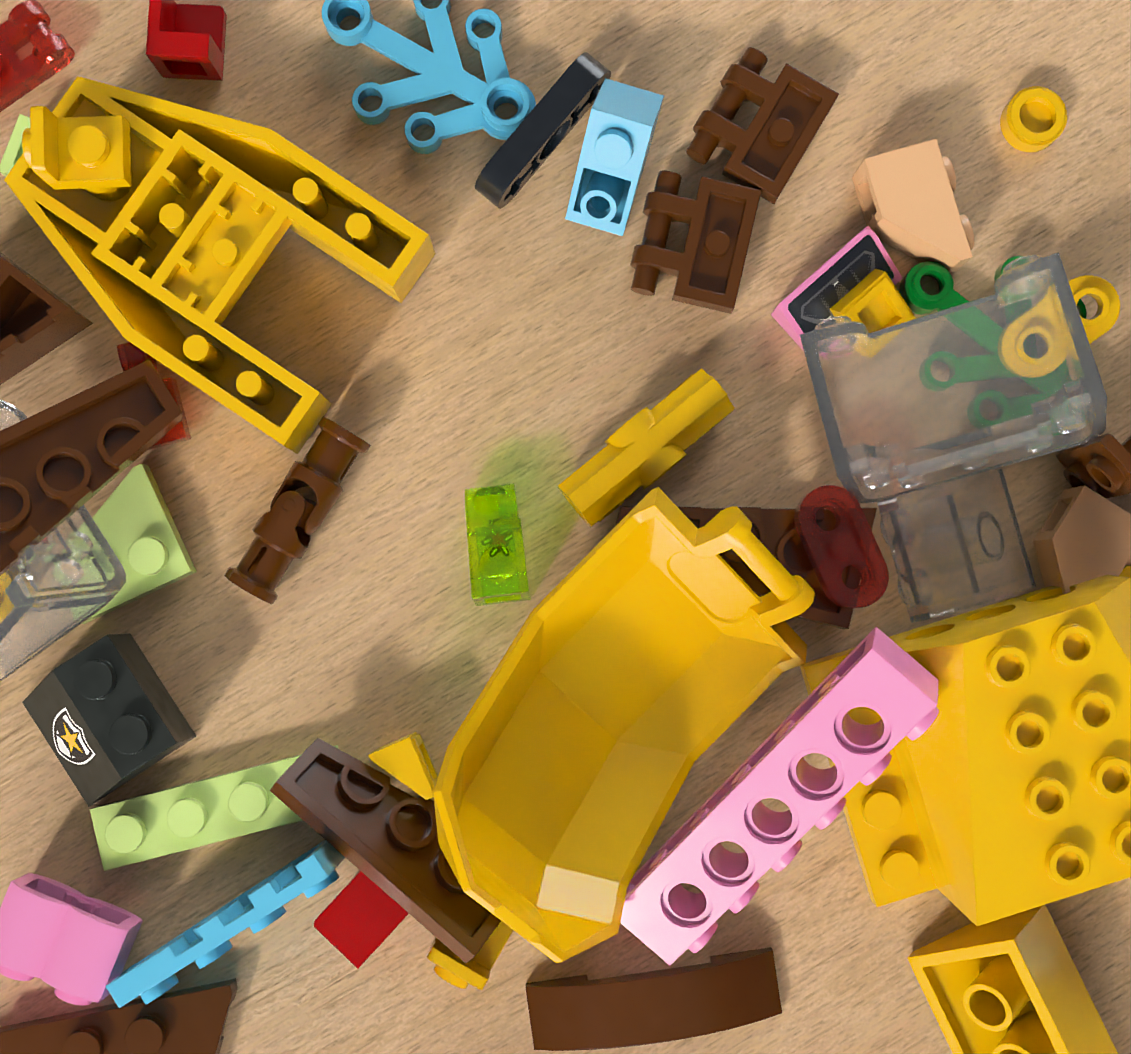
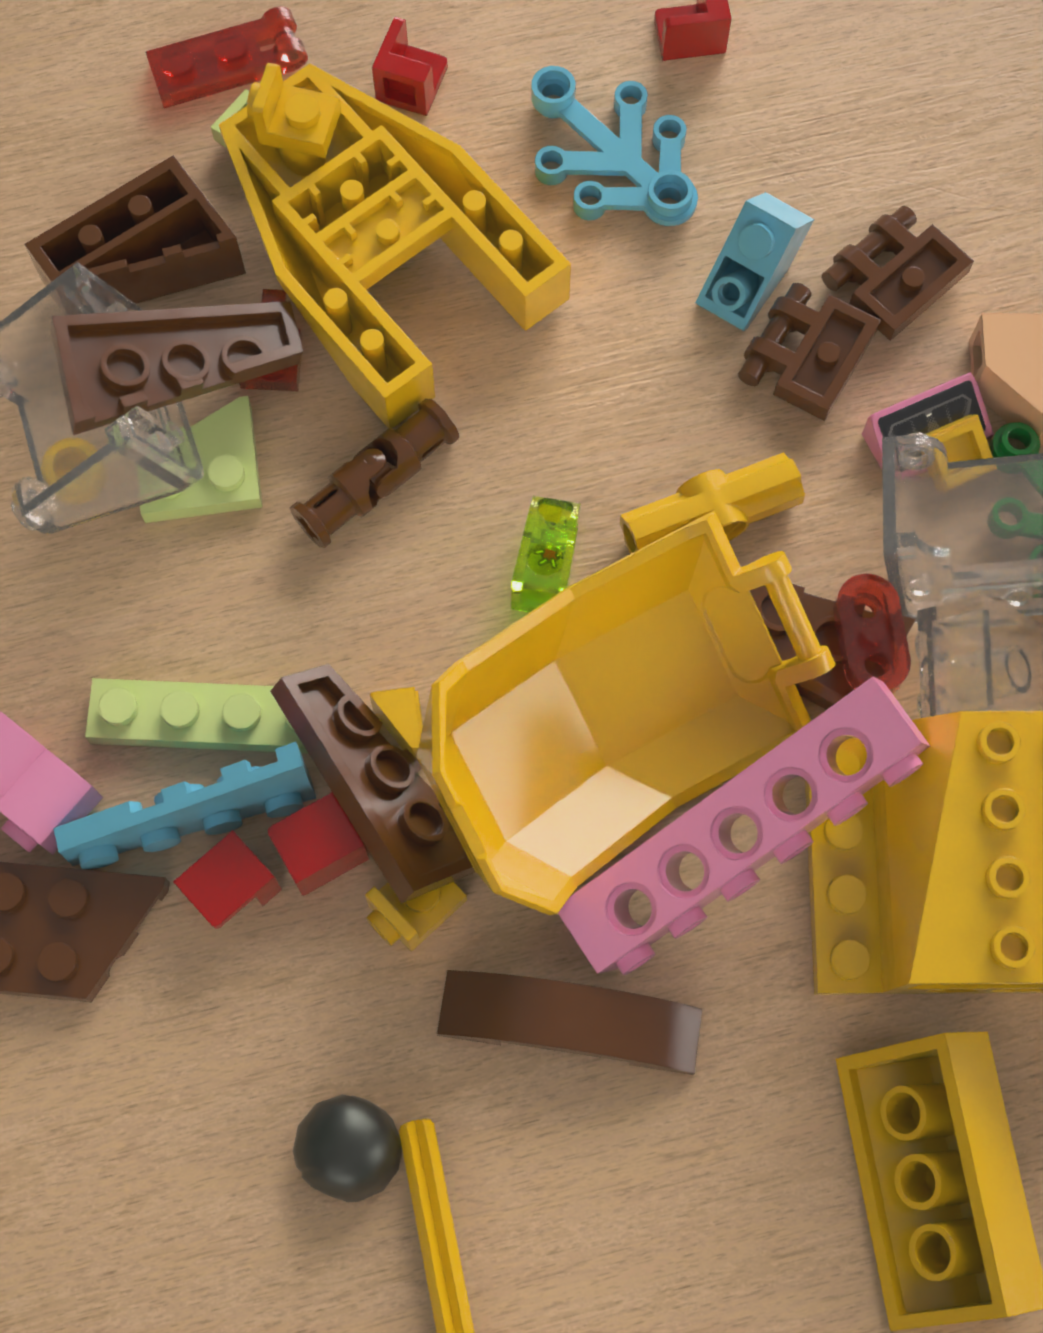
camera: 20 degrees right, 15 degrees down
(107, 716) = (136, 600): pearl dark grey slope -> none
(291, 978) = (227, 881): none -> red panel
(542, 130) = (692, 223): black beam -> none

